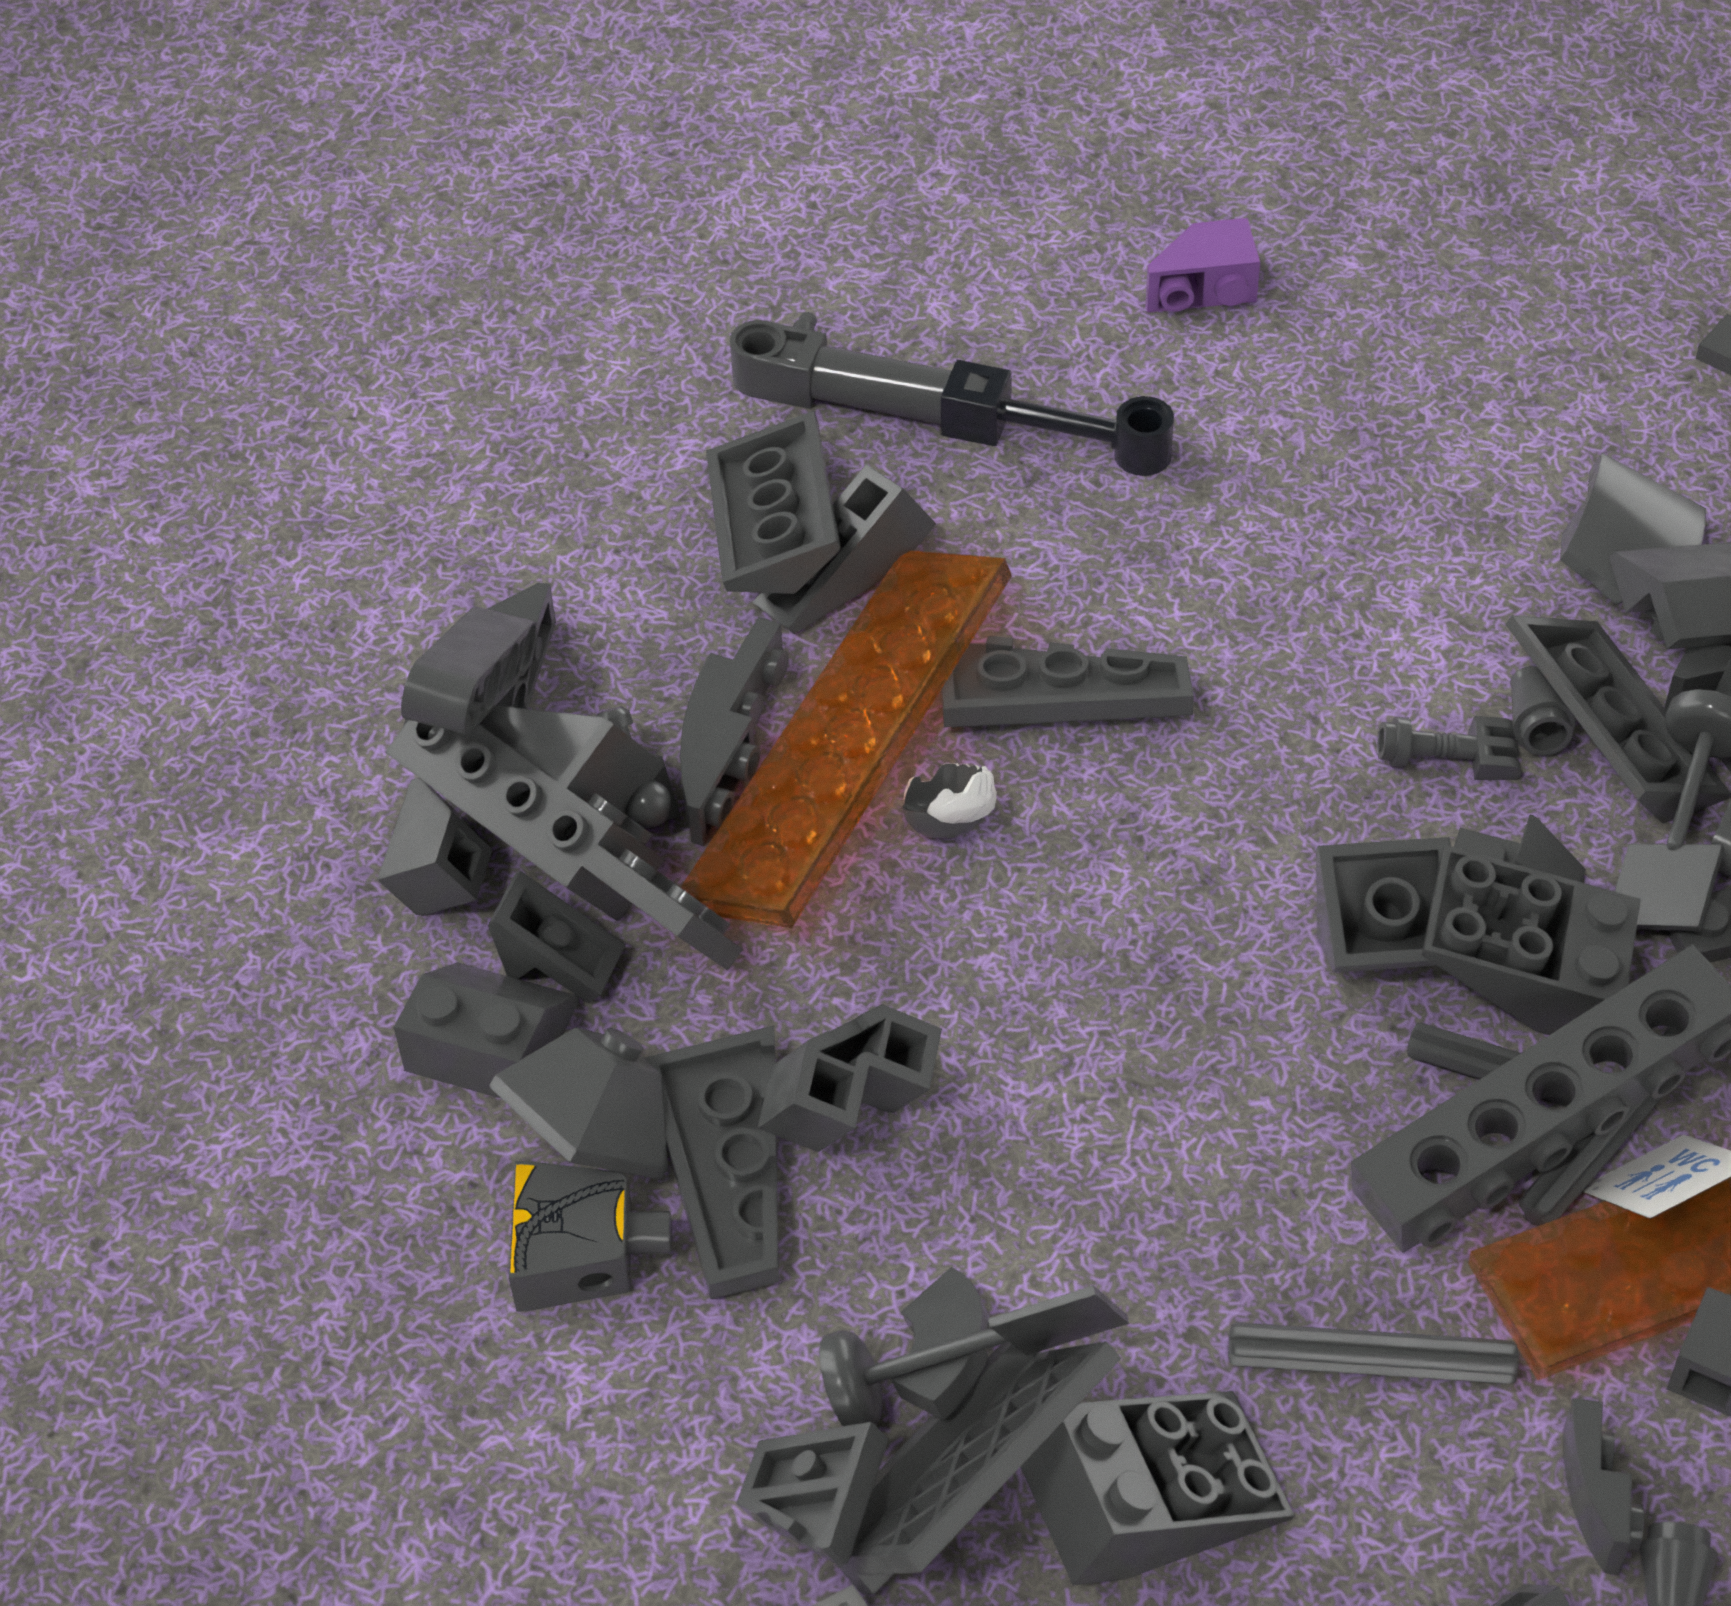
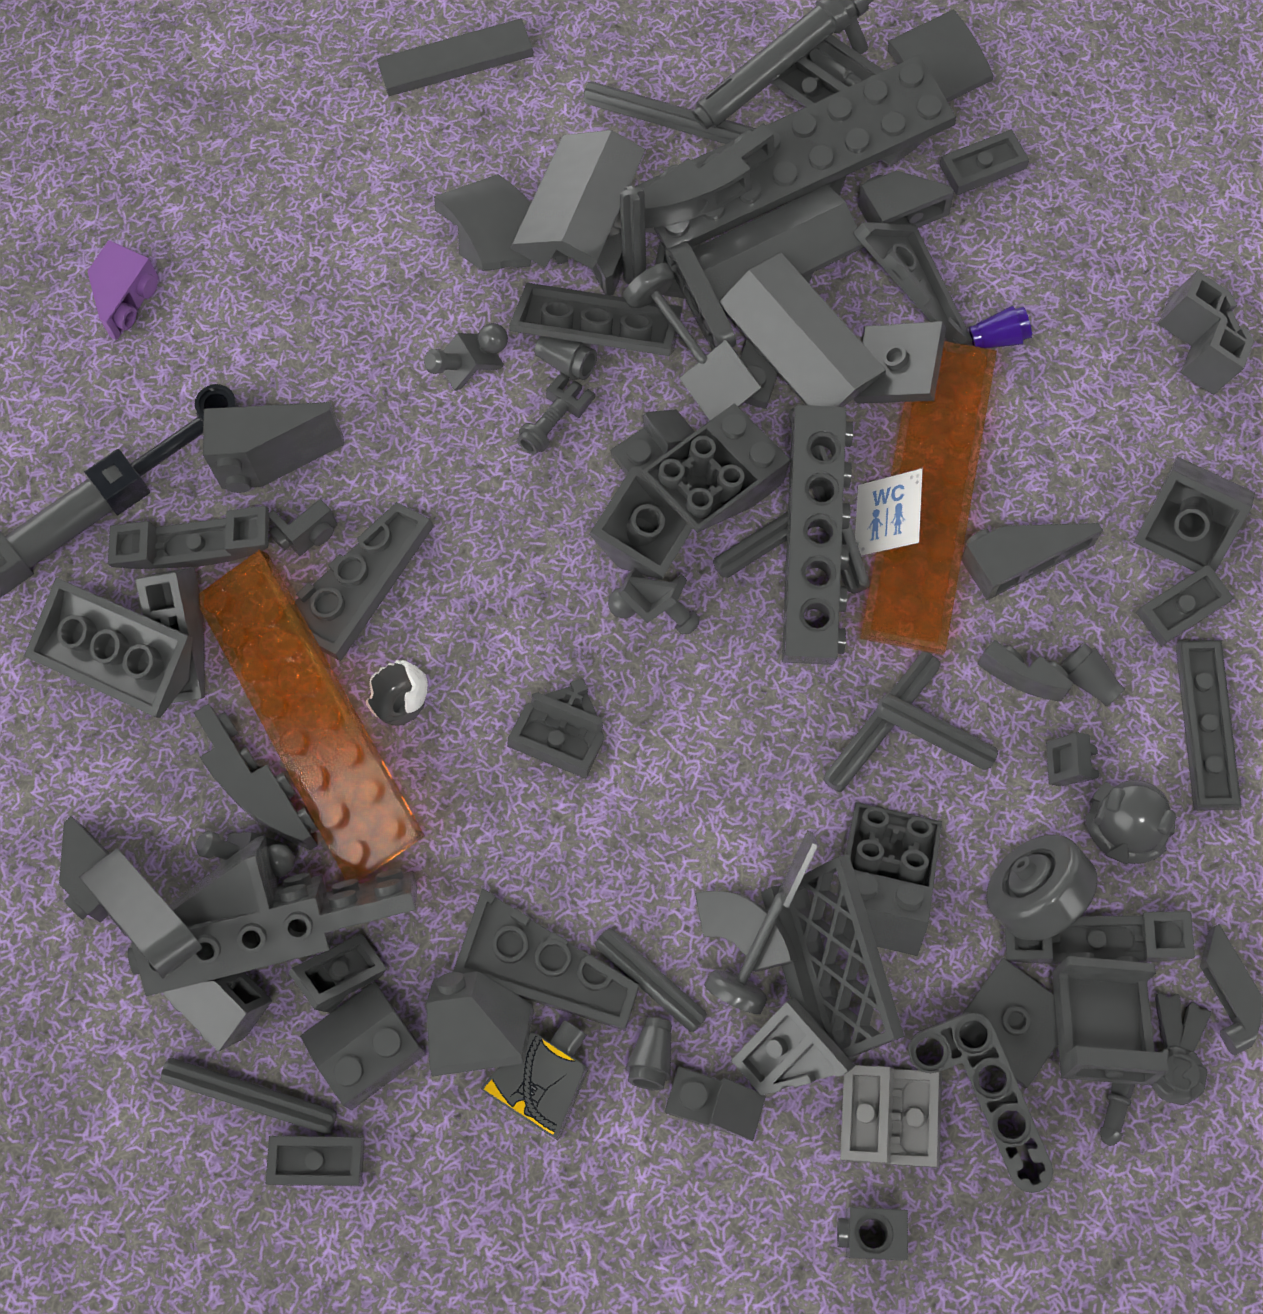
camera: 55 degrees left, 20 degrees up
(315, 1062) = (315, 1161): none -> dark grey plate
(350, 957) = (248, 1096): none -> dark grey axle
(689, 1460) = (715, 1103): none -> dark grey slope
(697, 1341) = (651, 1056): none -> dark grey cone
(797, 1288) = (651, 980): none -> dark grey axle
(872, 1060) = (547, 883): dark grey brick -> none
(958, 506) = (189, 544): none -> dark grey slope
(1048, 996) = (560, 729): none -> dark grey slope
(1075, 595) = (309, 529): none -> dark grey bracket
(1142, 488) = (266, 442): none -> dark grey slope
(1295, 971) = (652, 598): none -> dark grey piece
(1411, 1421) = (936, 731): none -> dark grey axle
(1441, 613) = (468, 354): none -> dark grey piece

